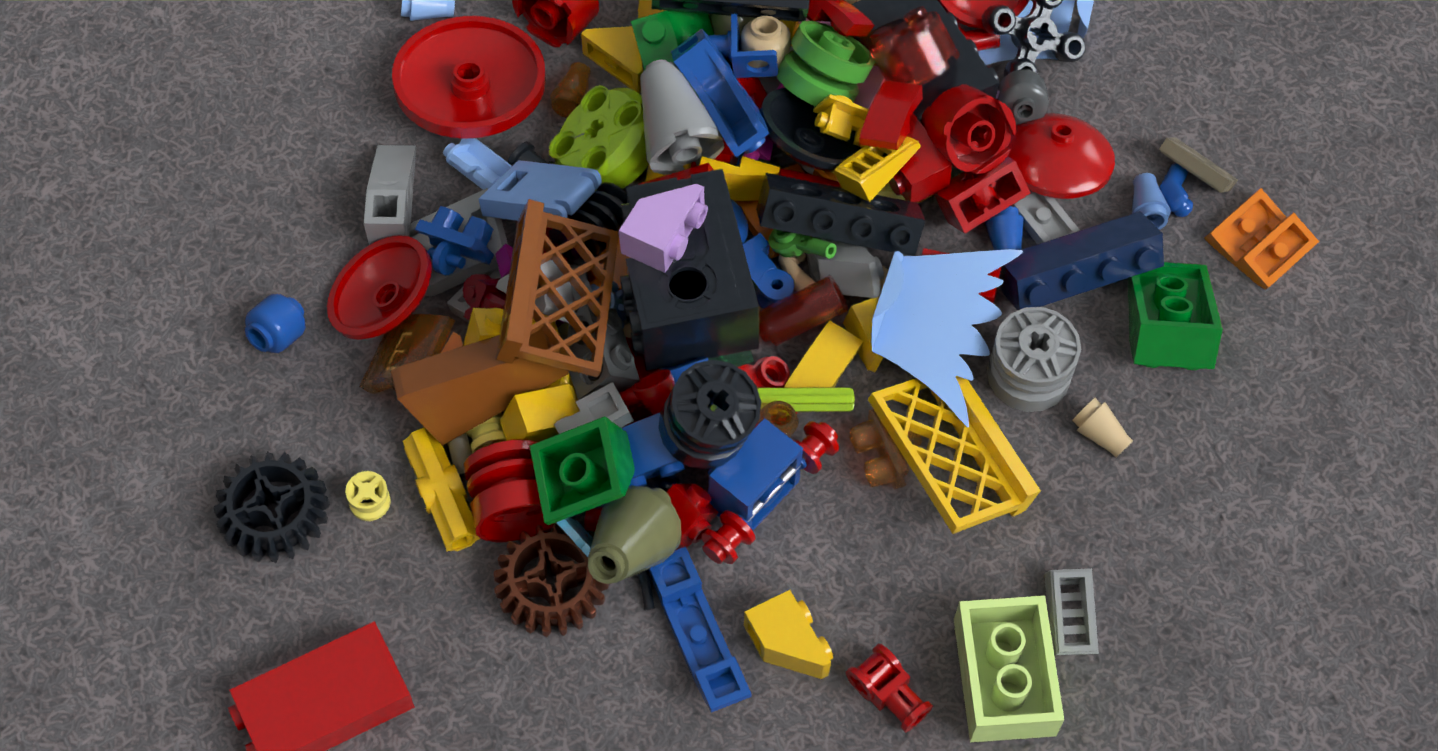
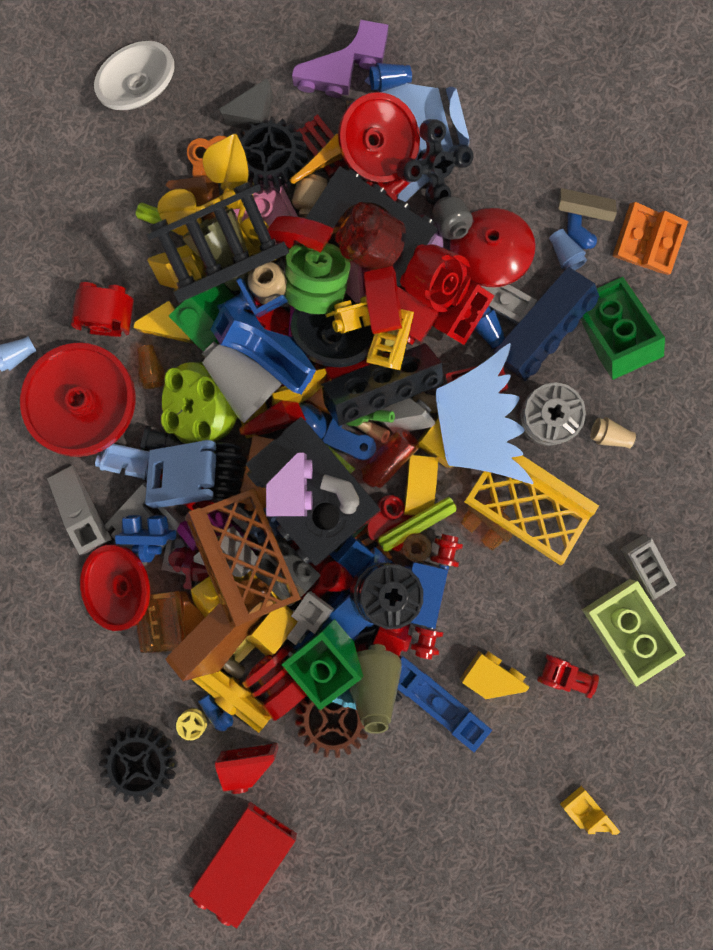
camera: 25 degrees left, 25 degrees up
(275, 323) = (63, 642): blue head -> none
(404, 505) = (219, 720): none -> blue arm
(404, 571) = (244, 766): none -> red slope
(726, 261) = (345, 493): none -> light grey arm

